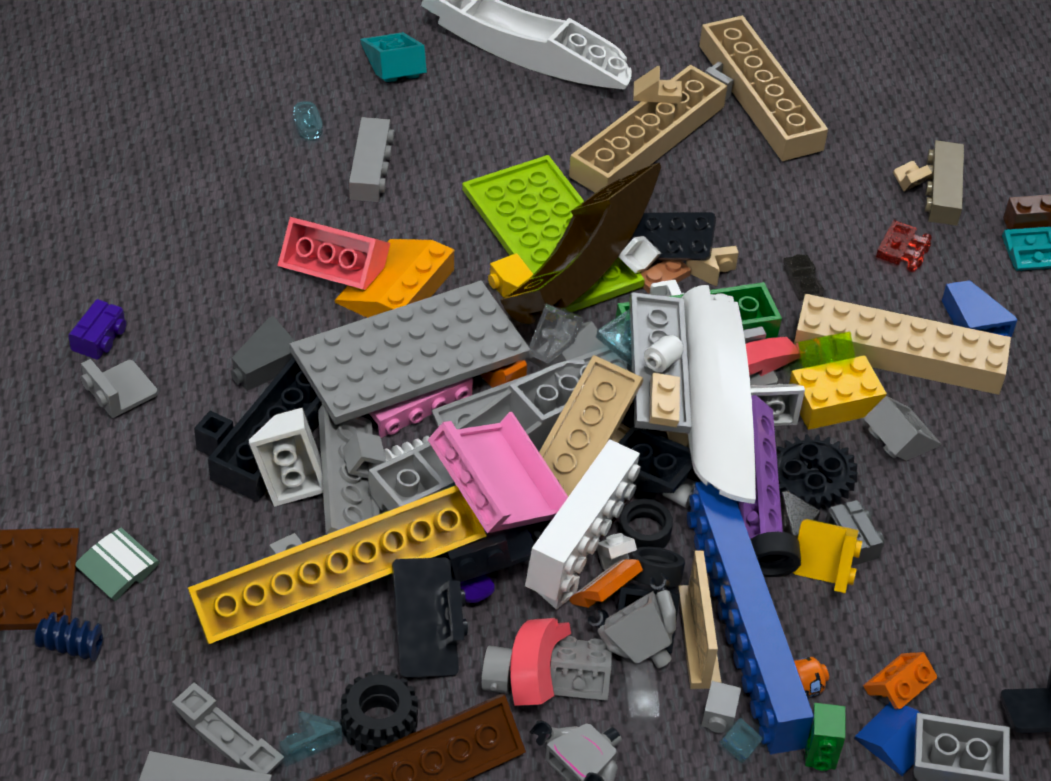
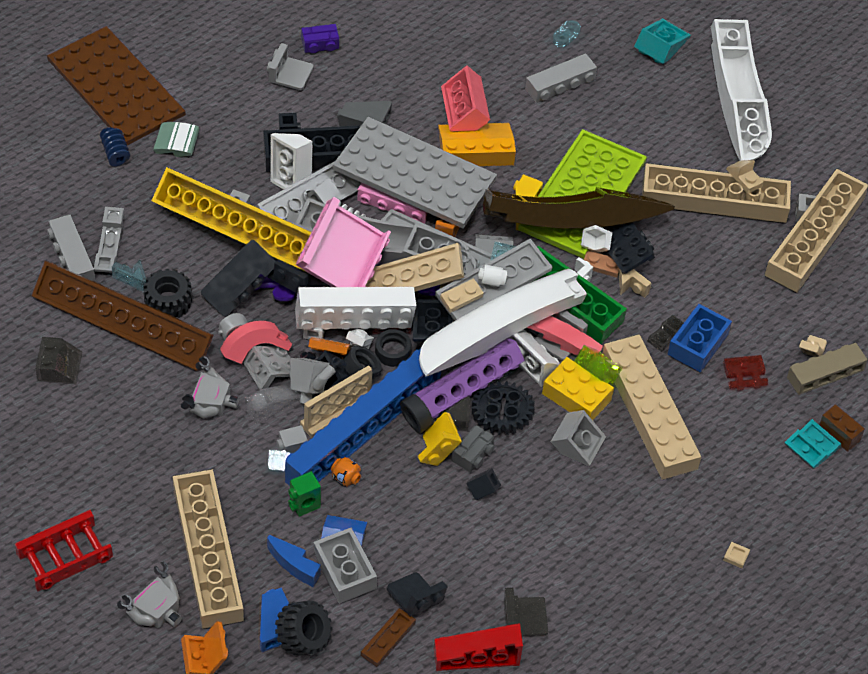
camera: 55 degrees right, 5 degrees up
(554, 333) = (482, 226): clear slope -> none
(839, 252) = (699, 337): none -> blue brick
(902, 679) = (380, 518): orange bracket -> none
(912, 552) = (483, 484): none -> black panel
(976, 310) = (715, 434): slope -> none

